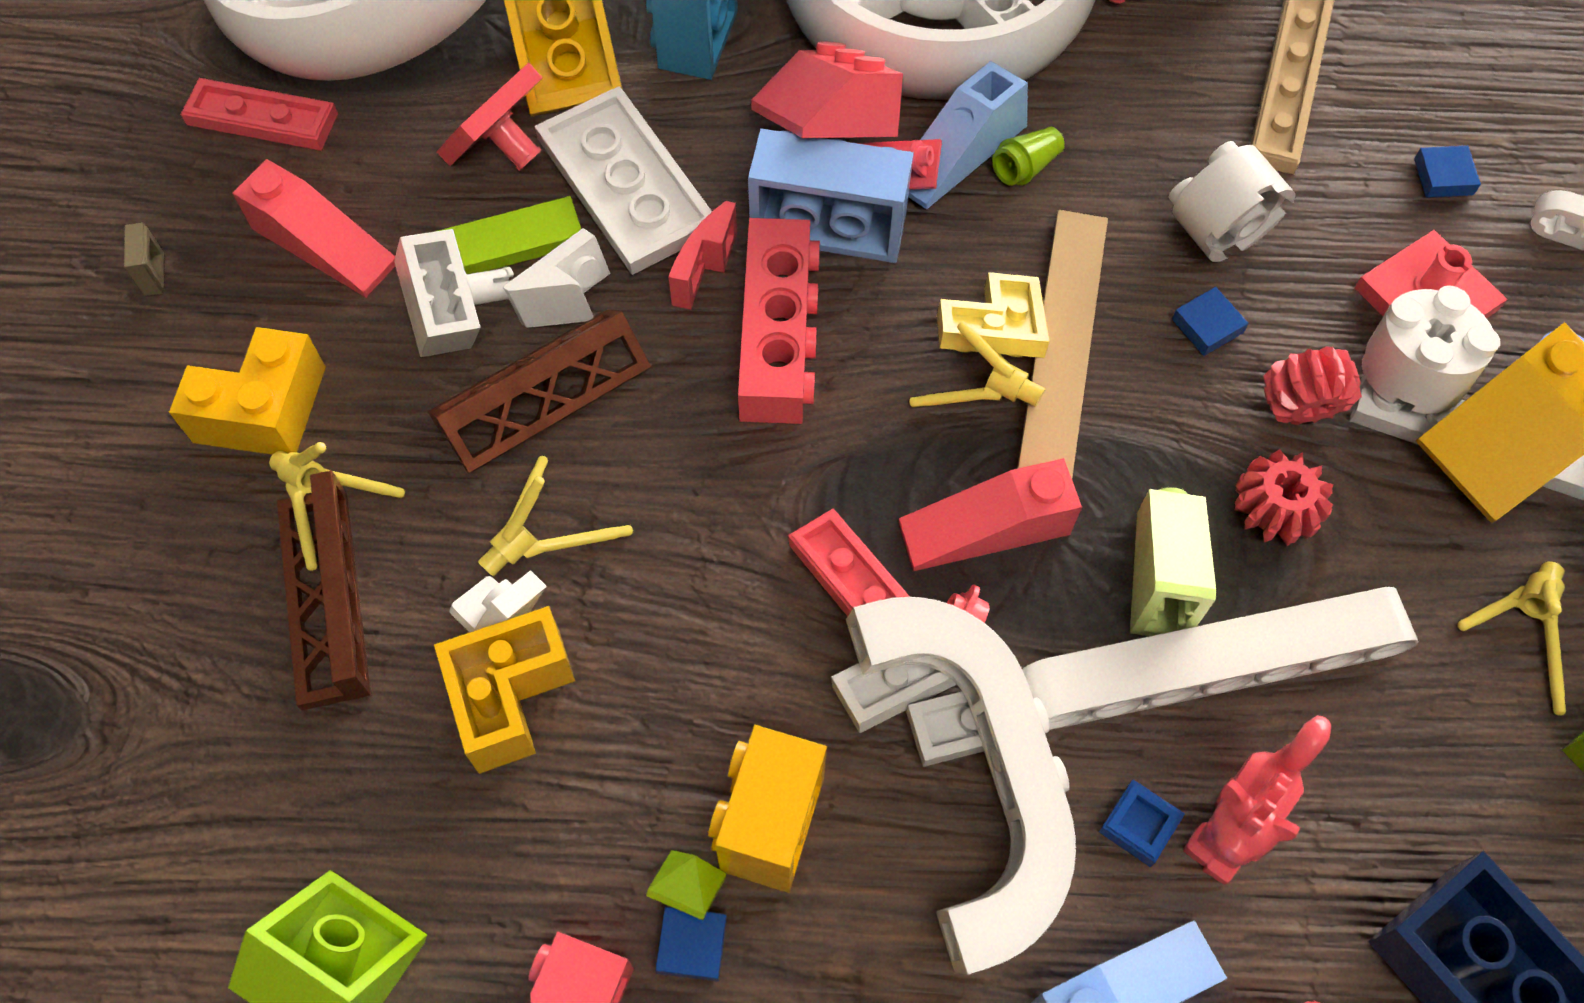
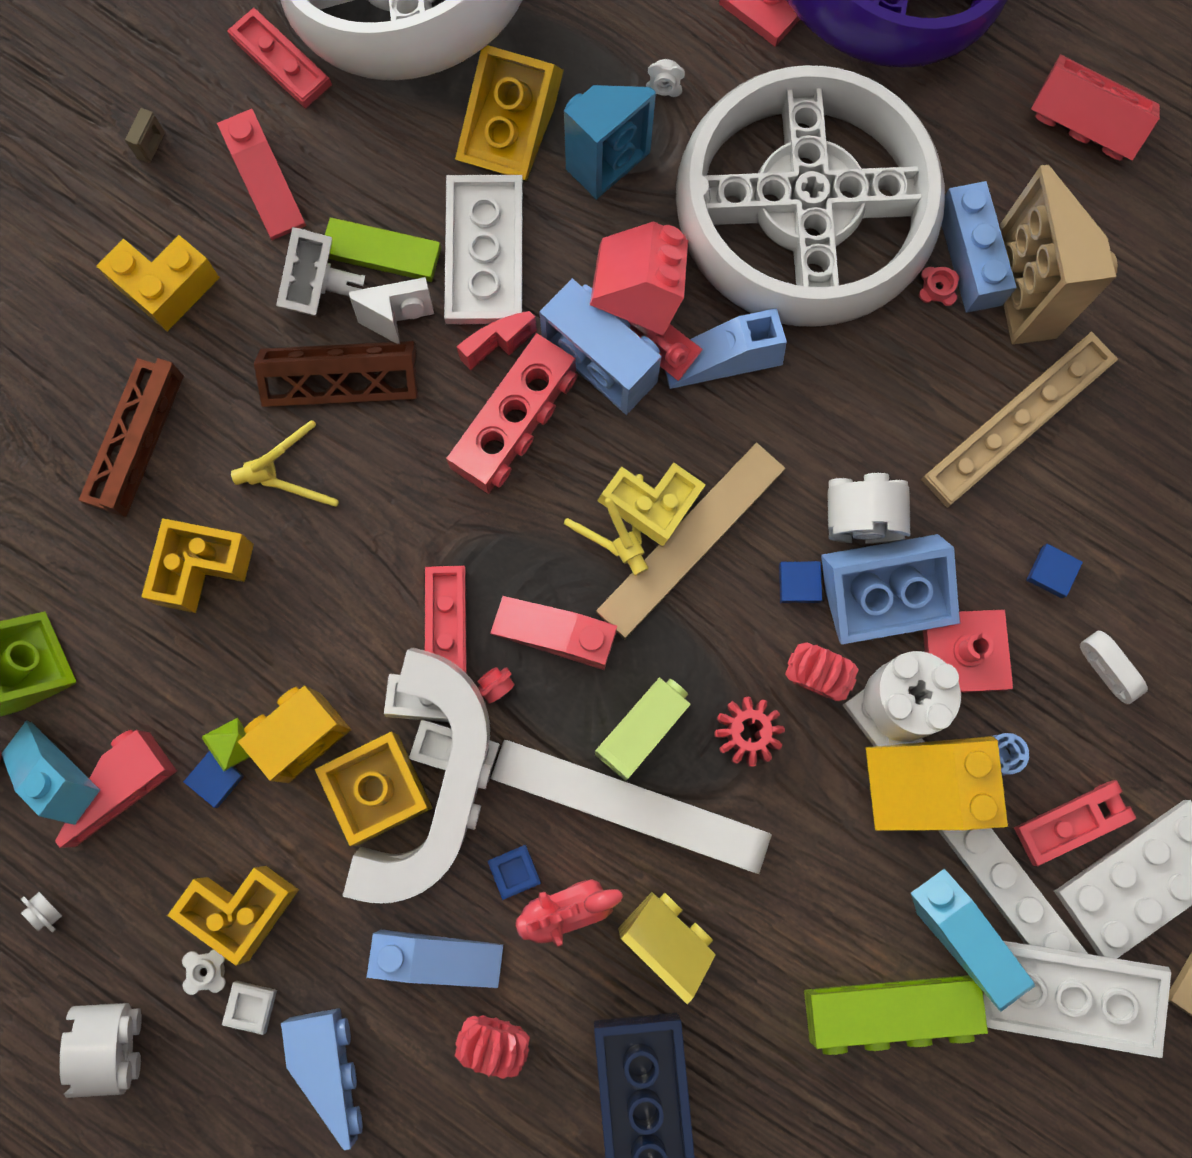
camera: 30 degrees right, 15 degrees up
(296, 470) = (160, 347): light yellow plant -> none
(494, 122) = (418, 158): coral tile -> none
(496, 602) = (220, 508): white bracket -> none
(911, 818) = (373, 789): none -> yellow brick
(1026, 155) = (765, 388): lime cone -> none
(1312, 267) = (891, 588): none -> light blue slope
(1395, 785) = (667, 945): none -> light yellow slope
(1538, 600) = (862, 895): light yellow plant -> none

